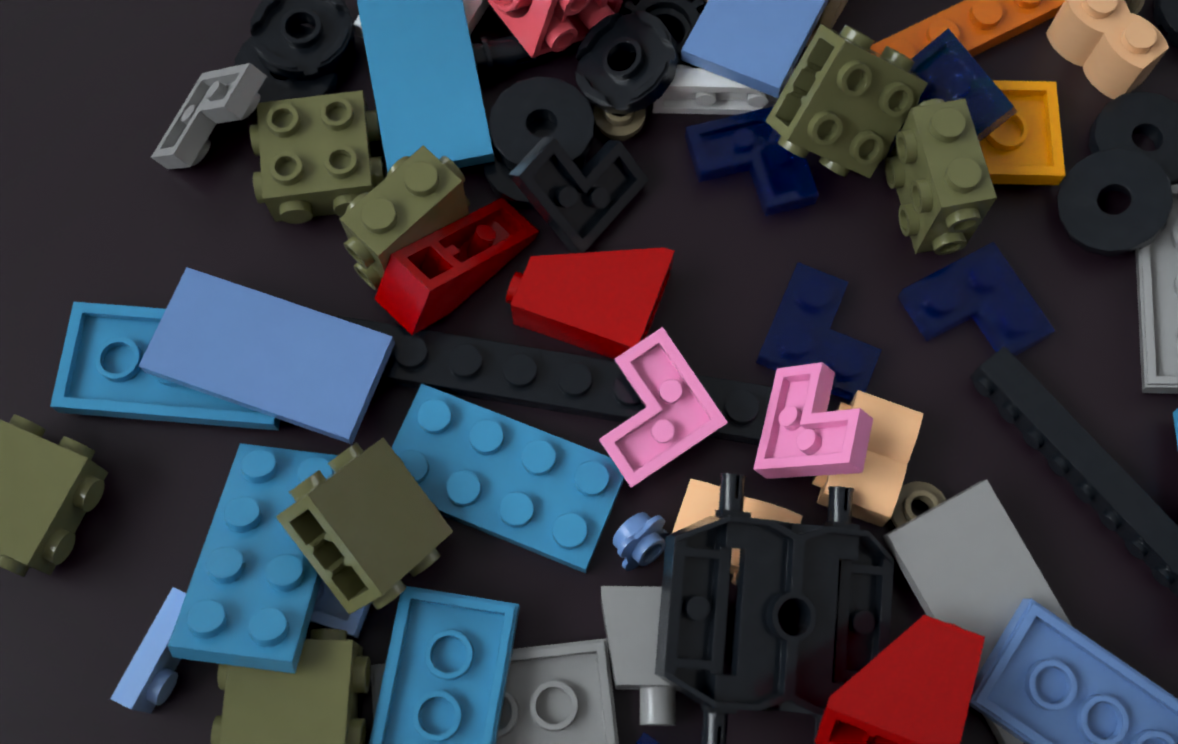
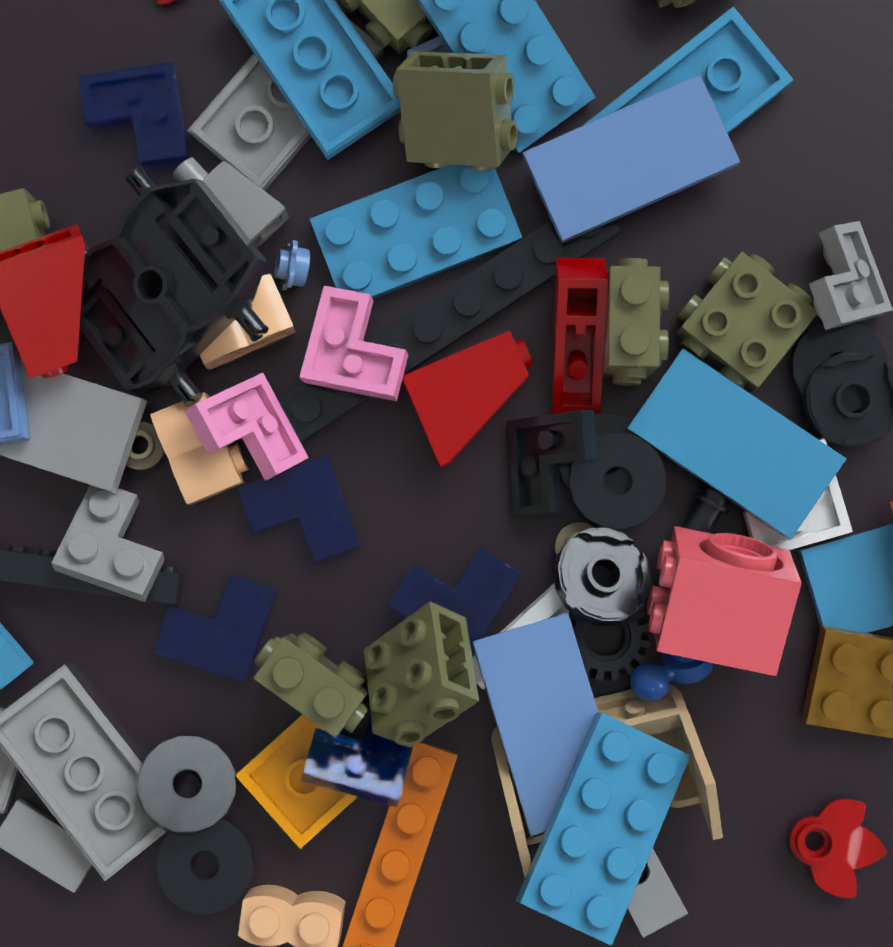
camera: 140 degrees right, 15 degrees up
(1042, 441) = (96, 547): none -> light grey plate

